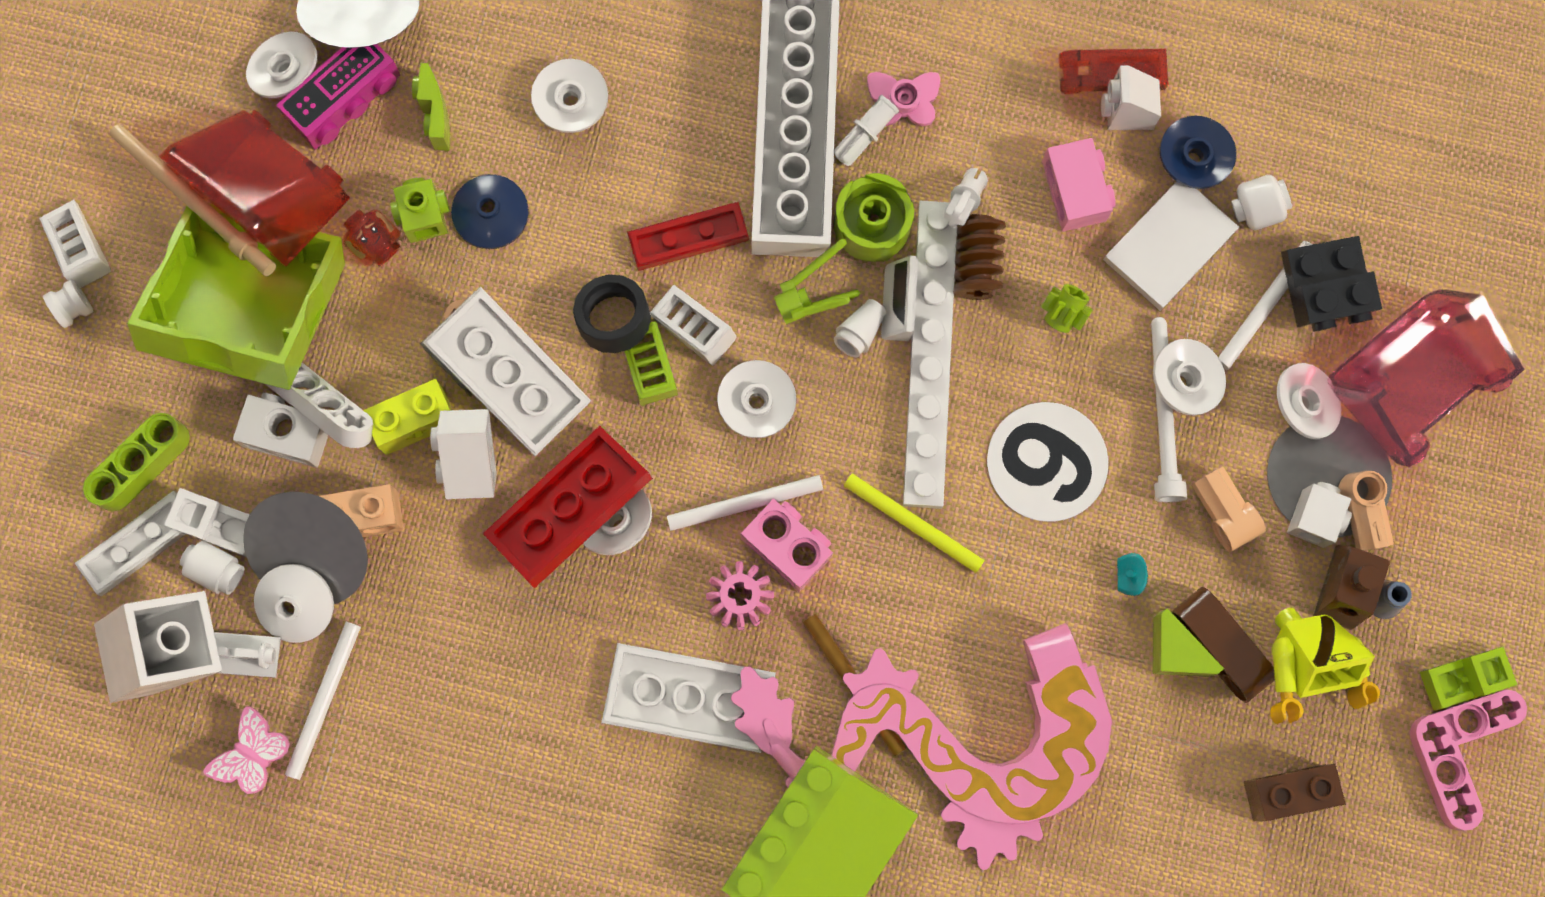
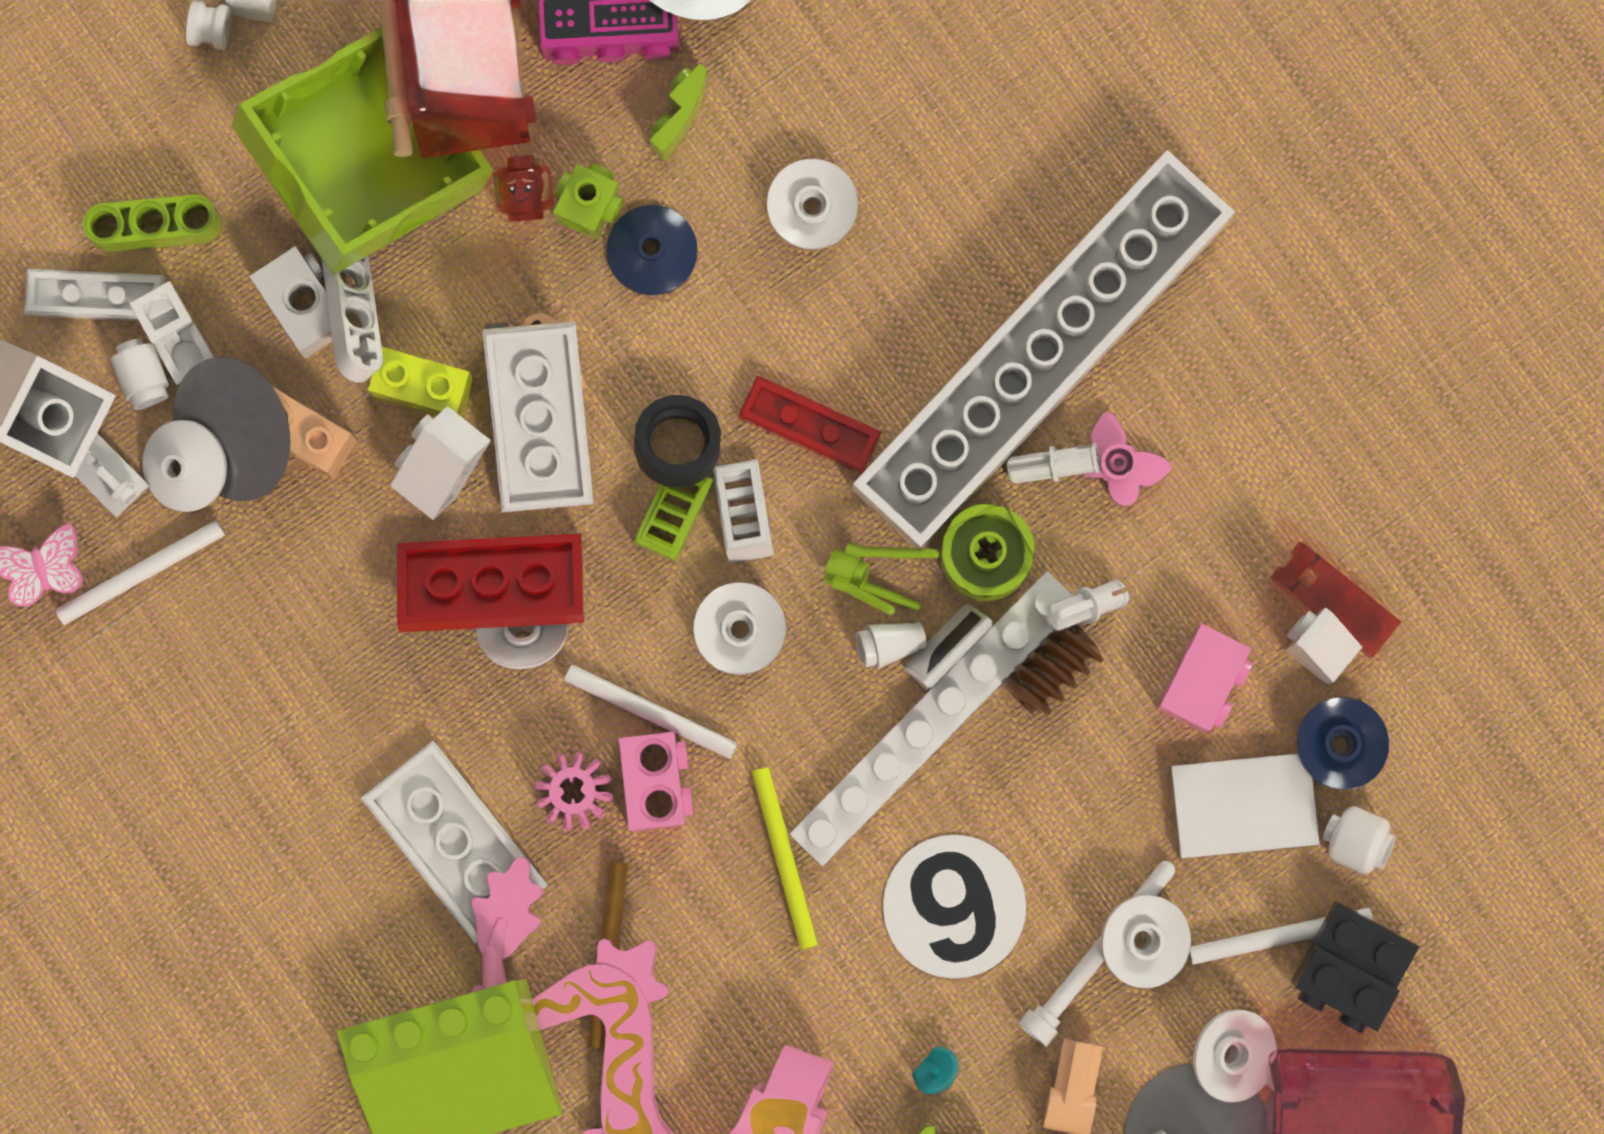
camera: 45 degrees right, 5 degrees up
(1066, 308) = (1090, 784): lime gear -> none

